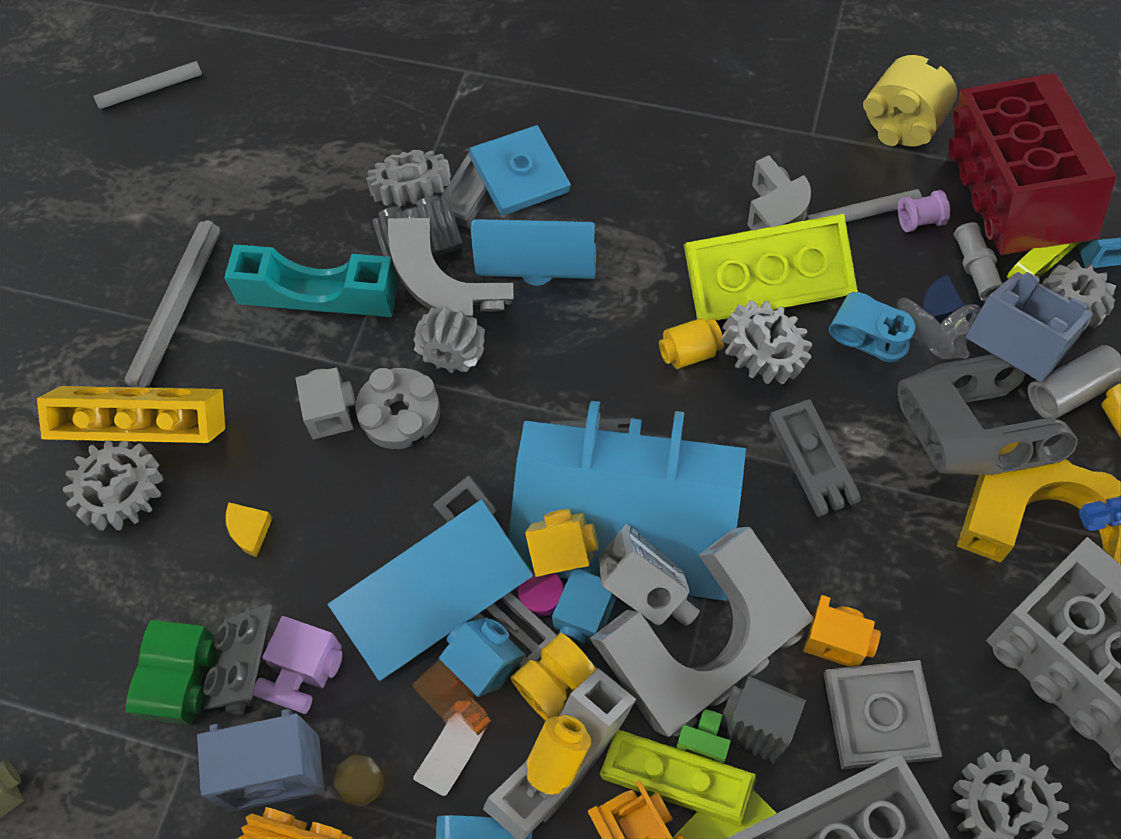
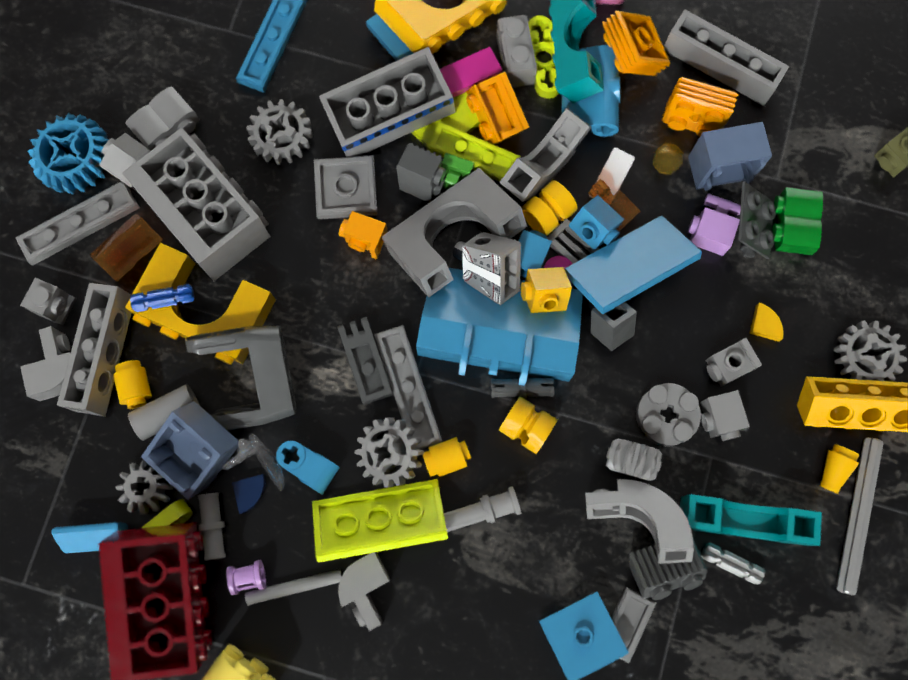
camera: 175 degrees right, 15 degrees up
(187, 351) = (838, 468): none -> yellow cone
(304, 468) = (743, 357): none -> light grey brick
(331, 246) = (733, 563): none -> light grey axle
(408, 177) = (681, 631): light grey gear -> none
(534, 249) = (597, 541): dark azure panel -> none
(557, 754) = (547, 148): yellow brick -> none
(579, 376) = (528, 425): none -> yellow wheel
(637, 289) = (487, 509): none -> light grey pin
(750, 428) = (407, 385): none -> light grey tile

